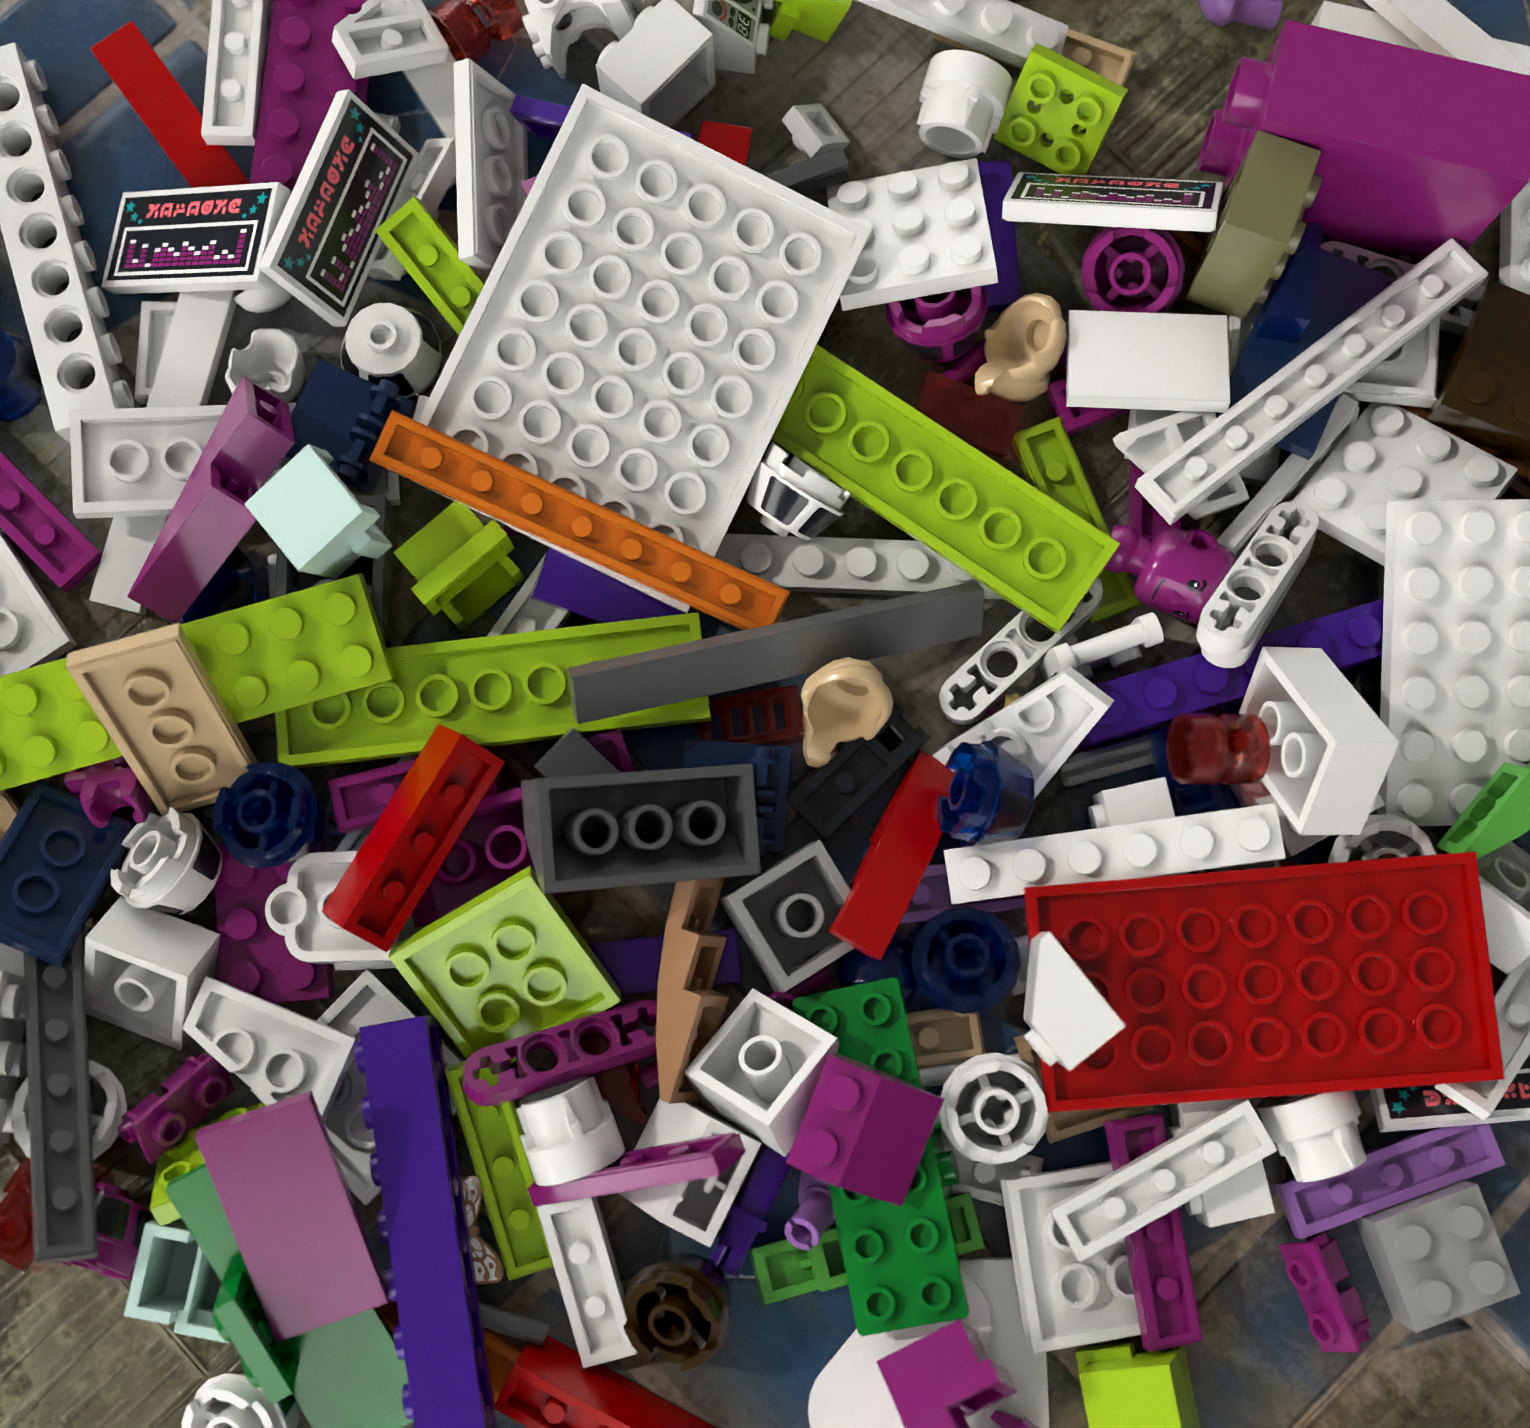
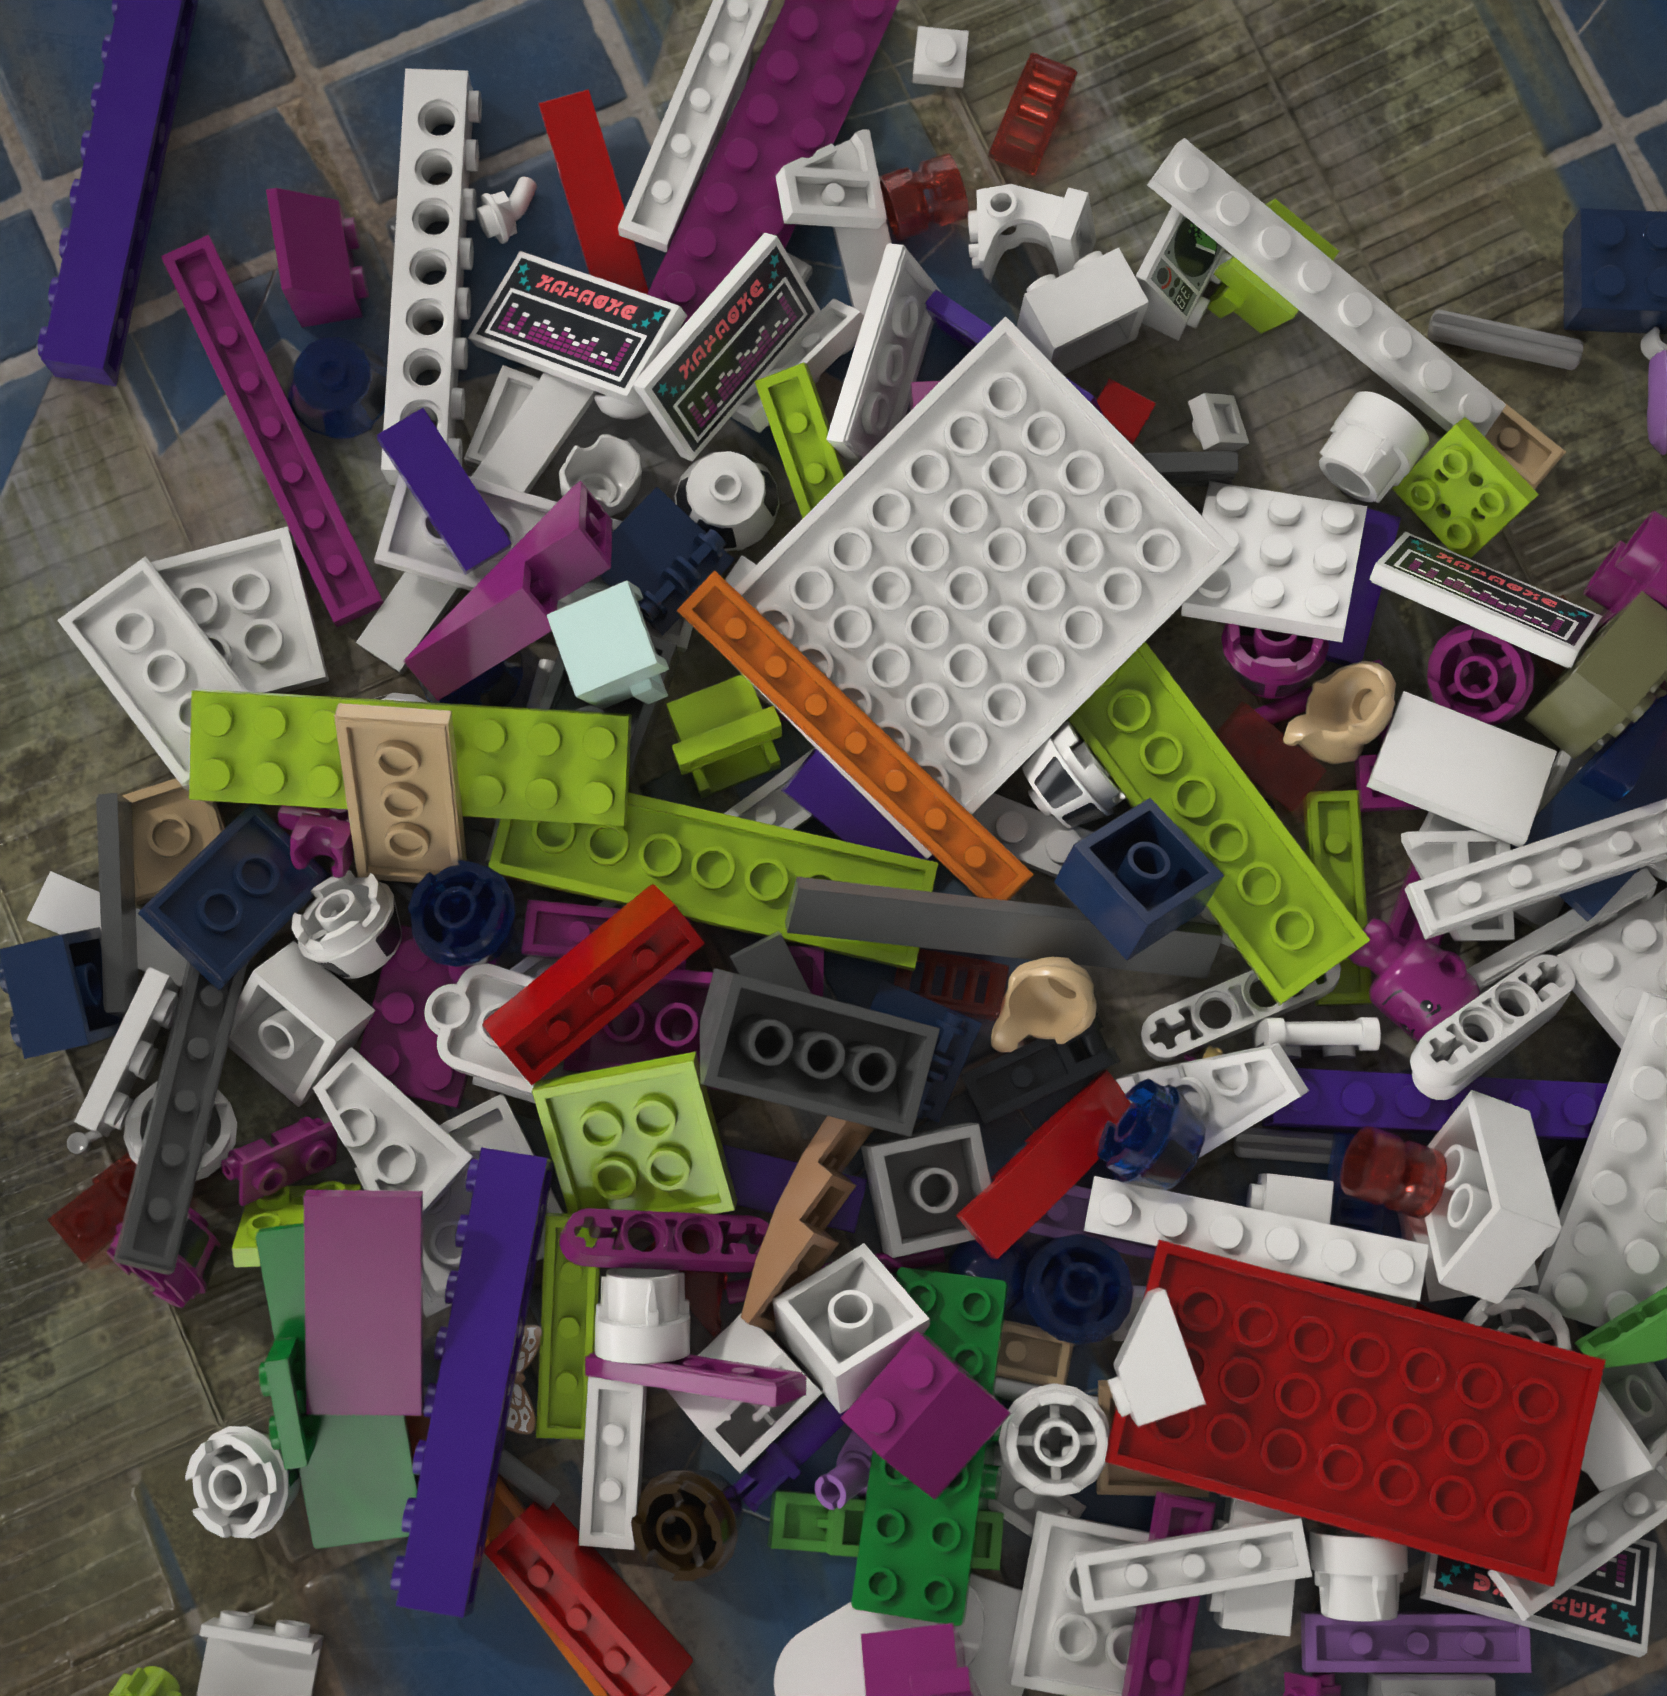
camera: 15 degrees right, 0 degrees up
(93, 164) = (500, 213): none -> white plate
(116, 428) = (444, 491): none -> dark purple tile
(174, 1282) = (231, 1325): light aqua plate -> none
(887, 561) = (1138, 878): none -> dark blue brick

